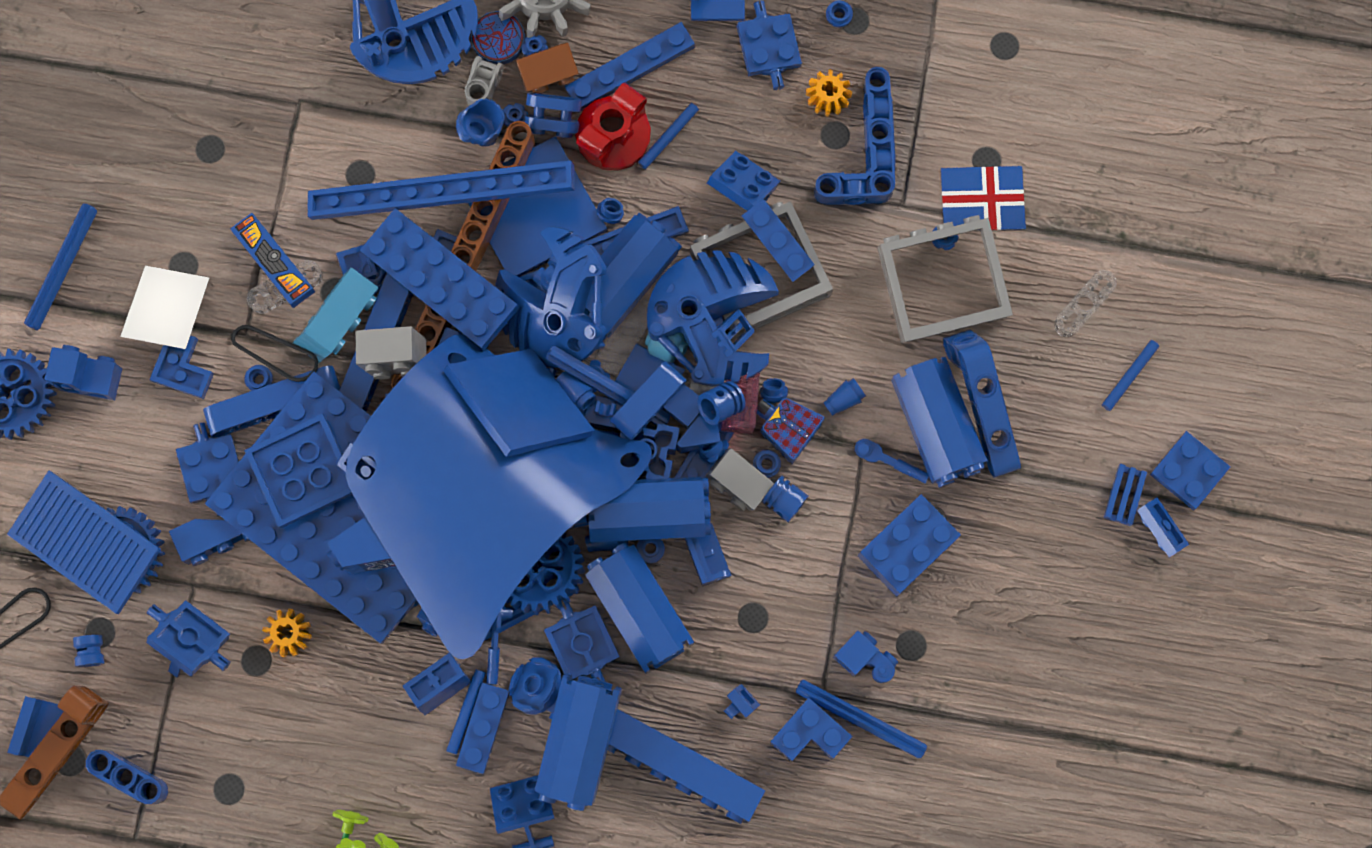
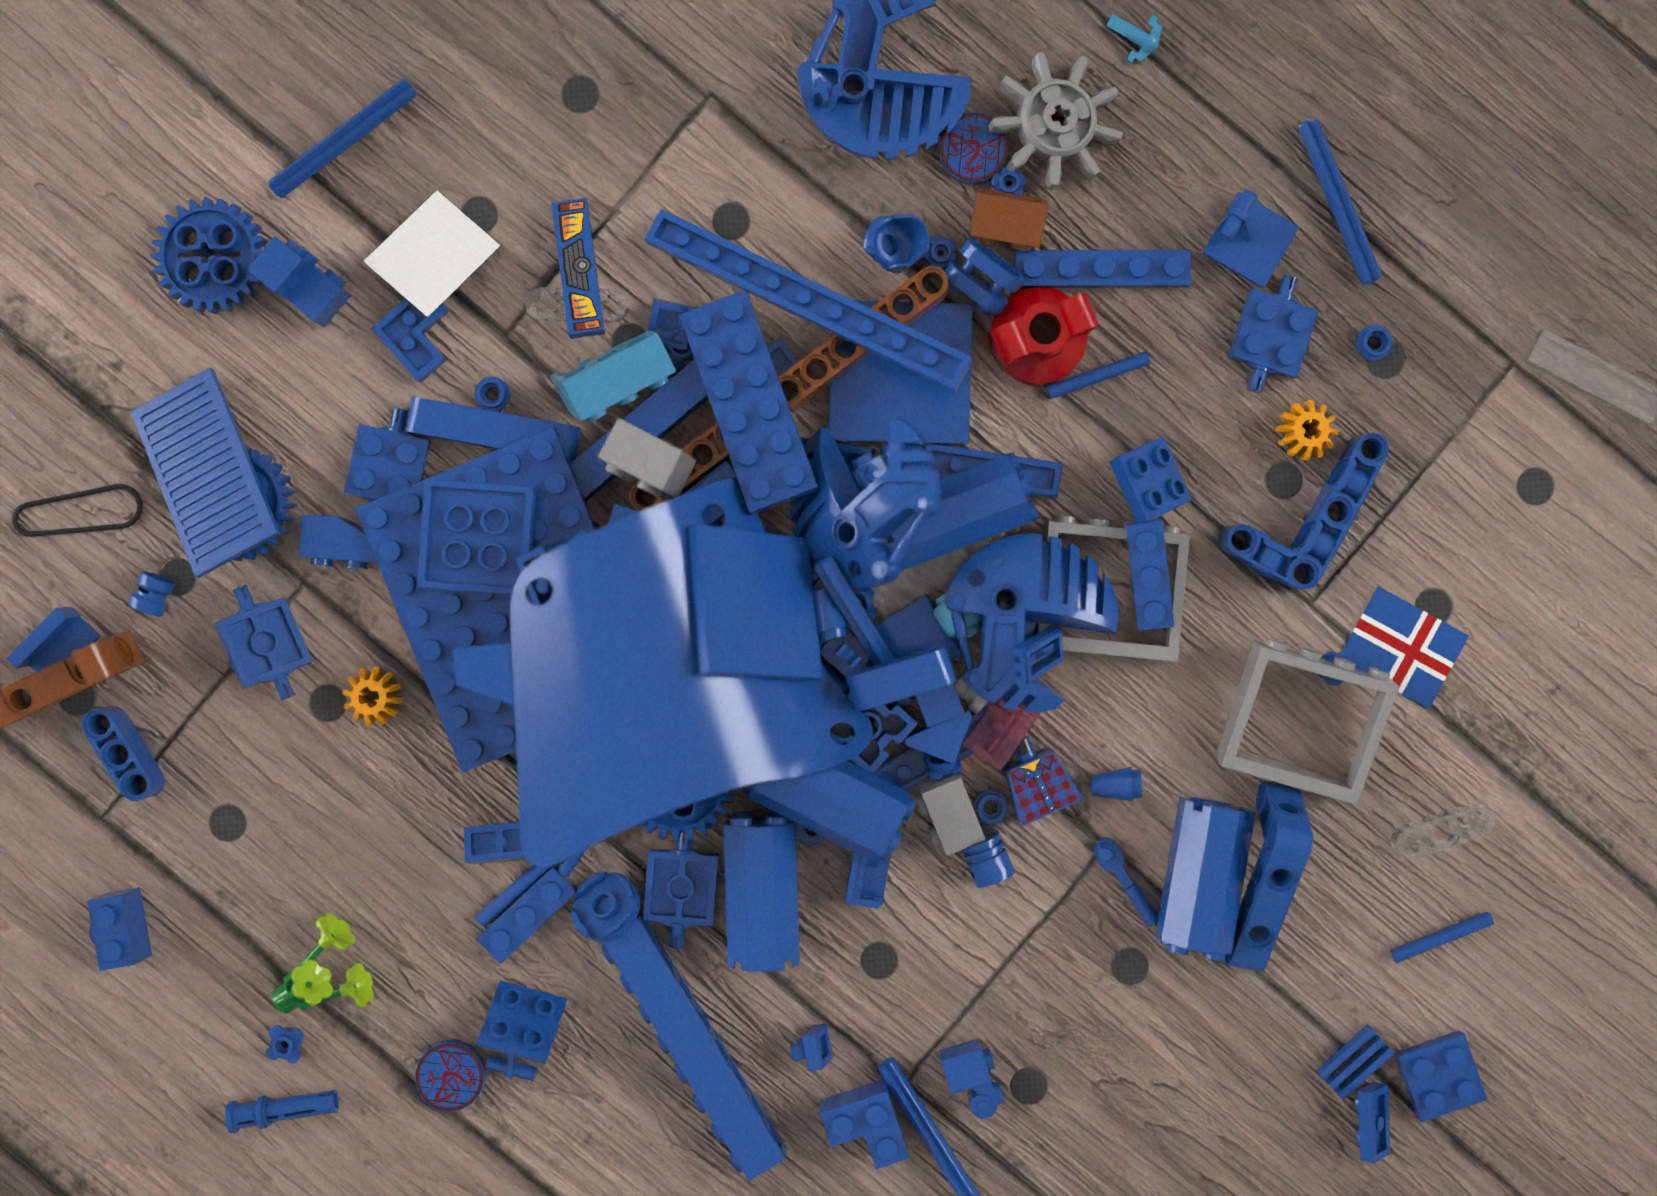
camera: 30 degrees right, 10 degrees up
(316, 364) = (538, 365): black piece -> none
(483, 78) = (929, 188): light grey piece -> none
(577, 741) = (613, 1005): blue brick -> none
(610, 210) = (990, 423): blue plate -> none
(723, 401) = (985, 726): blue piece -> none
(773, 390) = (1046, 733): blue plate -> none
(908, 545) = (1091, 986): blue brick -> none

